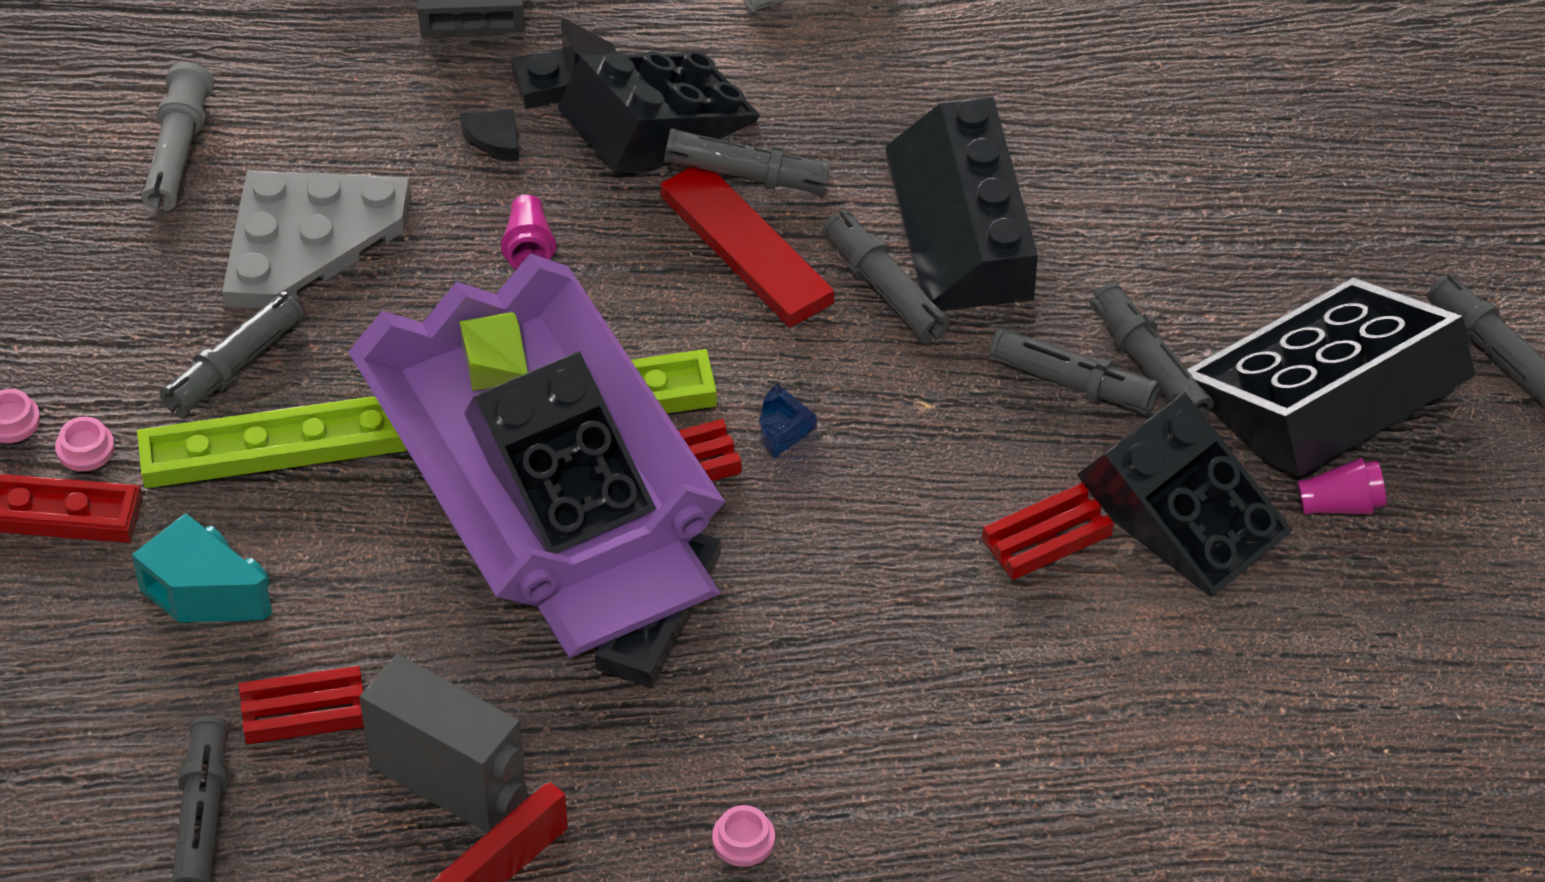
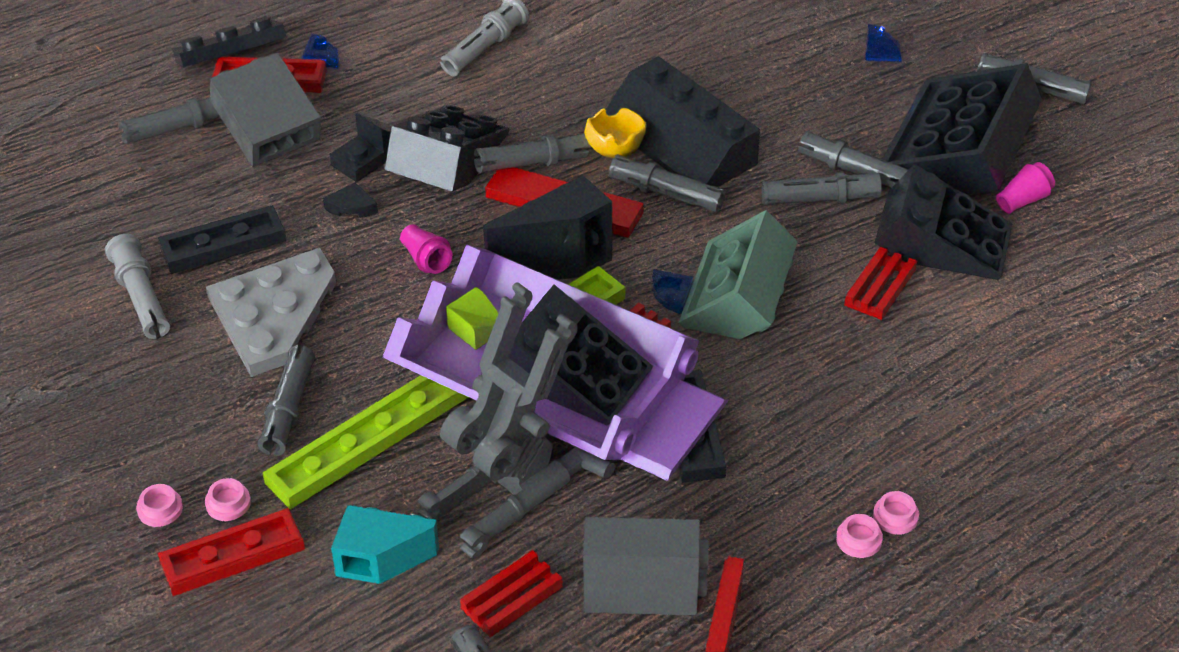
camera: 30 degrees left, 5 degrees down
(308, 117) = (221, 239): none -> black plate
(382, 517) = (507, 433): none -> dark grey piece
(669, 284) = (557, 232): none -> black slope
(810, 830) = (896, 513): none -> bright pink plate
(868, 179) = (615, 133): none -> yellow hair
(869, 446) = (740, 279): none -> sand green slope
(1326, 205) = (881, 45): none -> clear blue tile

